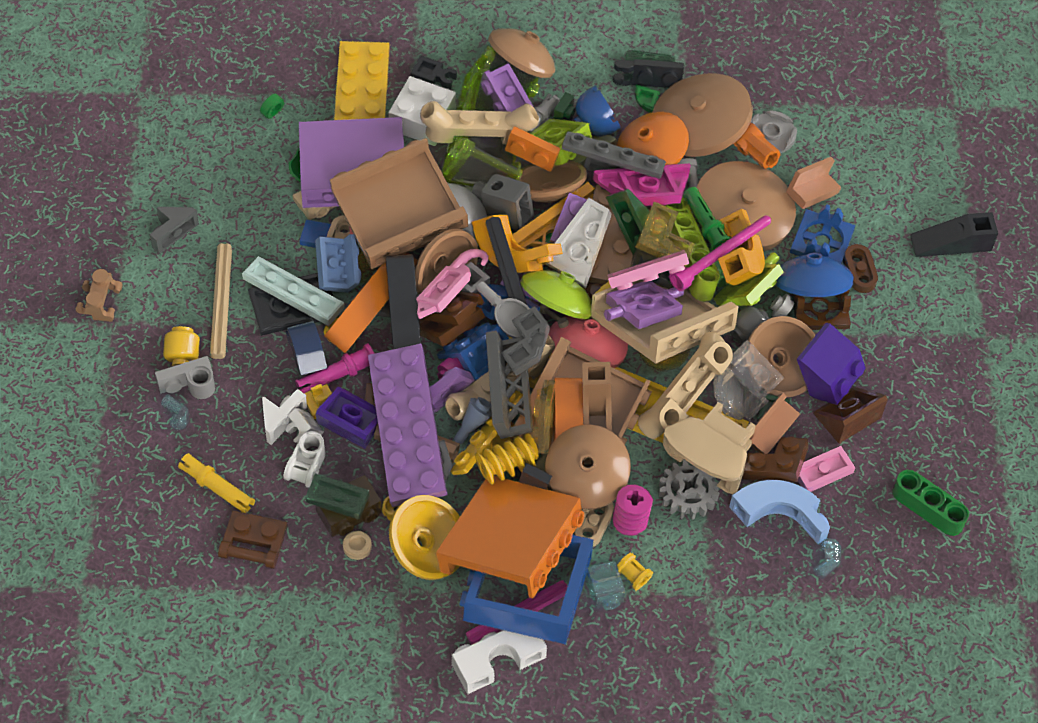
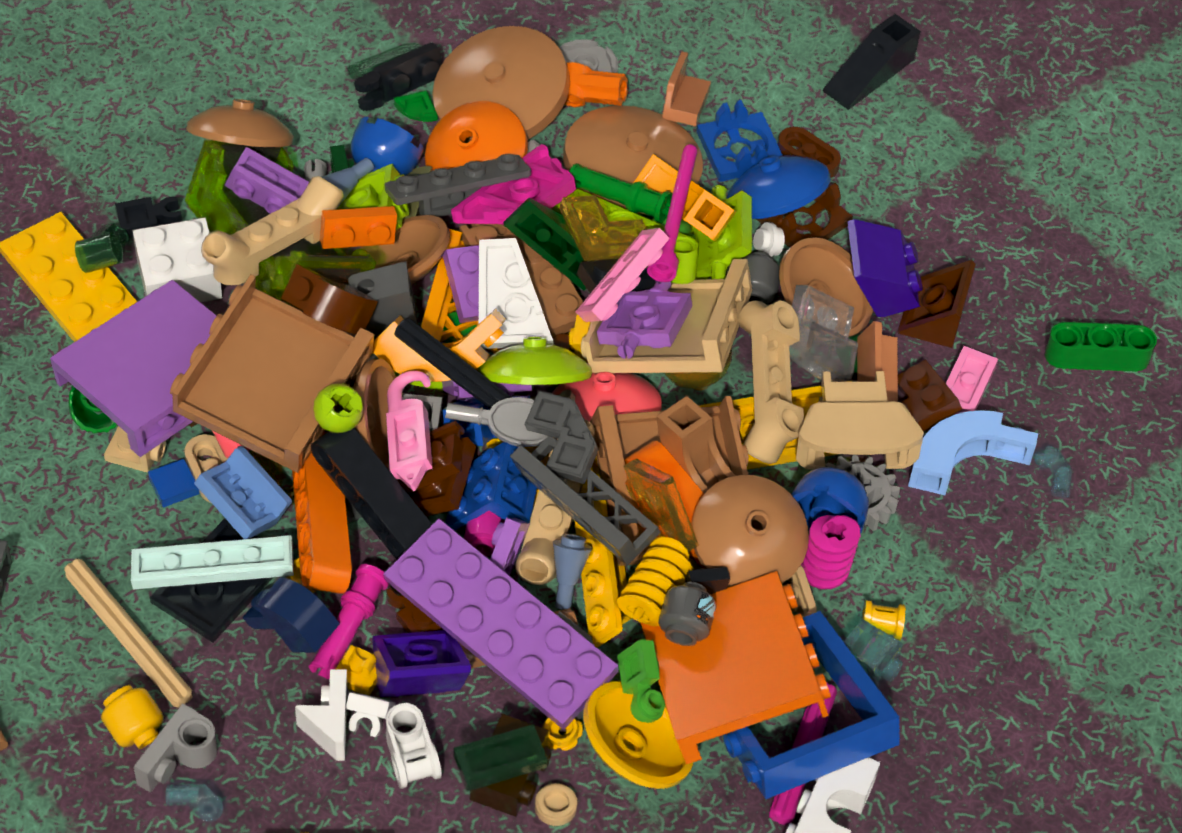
camera: 40 degrees left, 5 degrees down
(386, 77) = (102, 248): none -> clear green piece
(413, 236) = (347, 418): none -> lime piece
(455, 503) = (637, 673): none -> bright green plate
(464, 183) = (329, 301): none -> reddish brown brick
(505, 487) = (687, 614): none -> dark grey head
(552, 117) = (348, 178): none -> sand blue cone
(658, 478) = (831, 493): none -> blue cylinder

